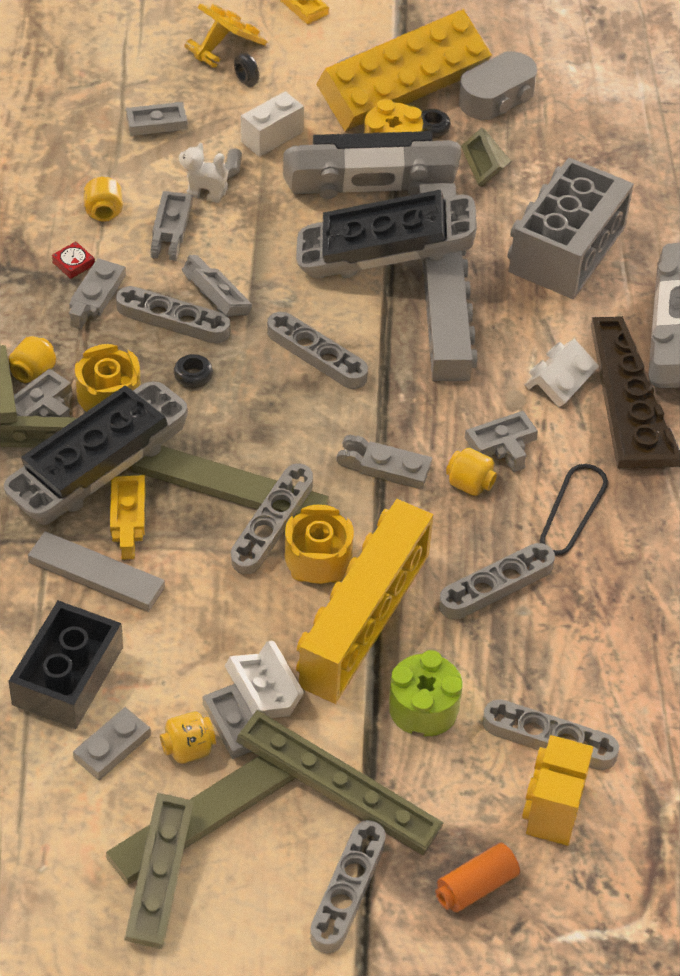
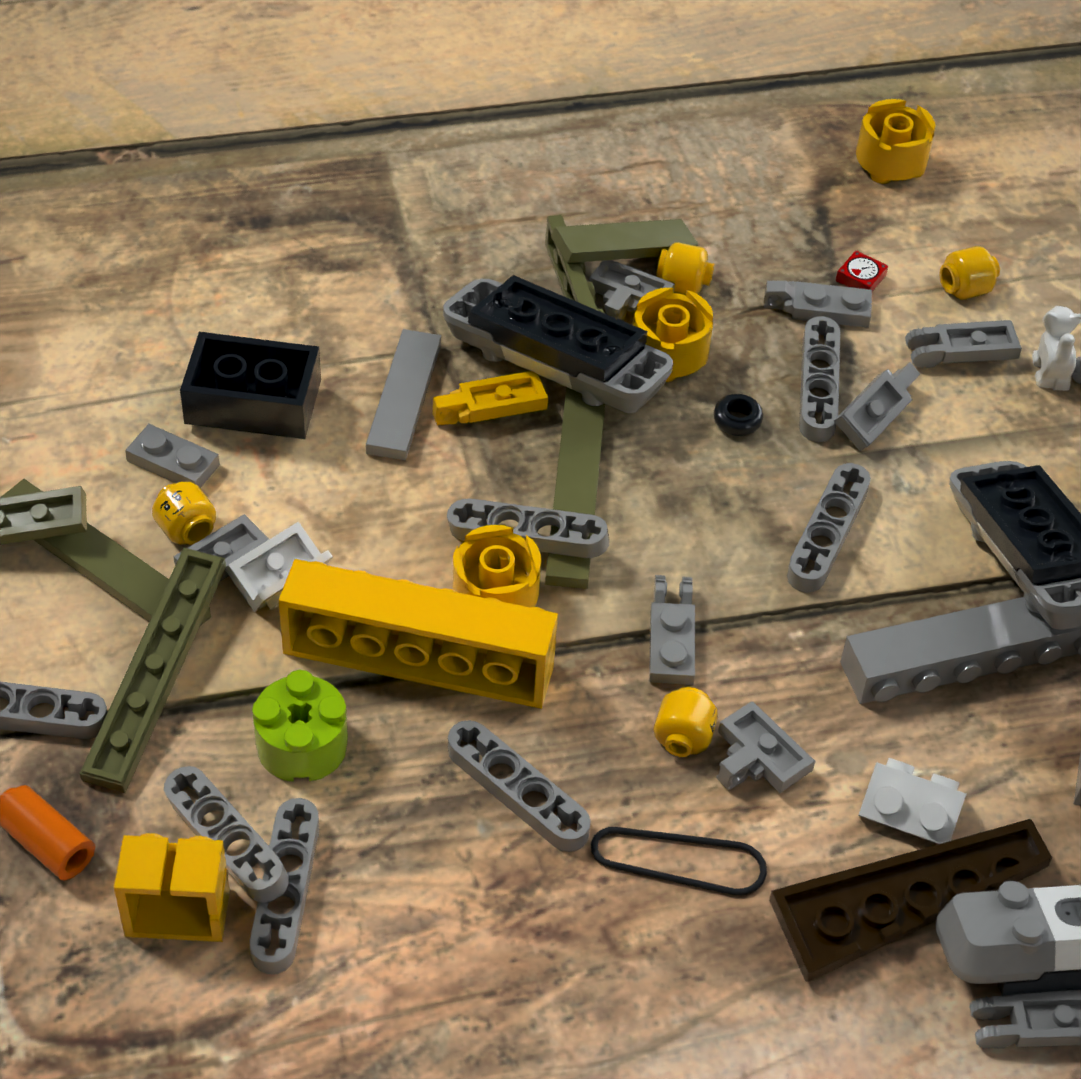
camera: 75 degrees right, 0 degrees up
(503, 754) = (229, 829): none -> light grey beam

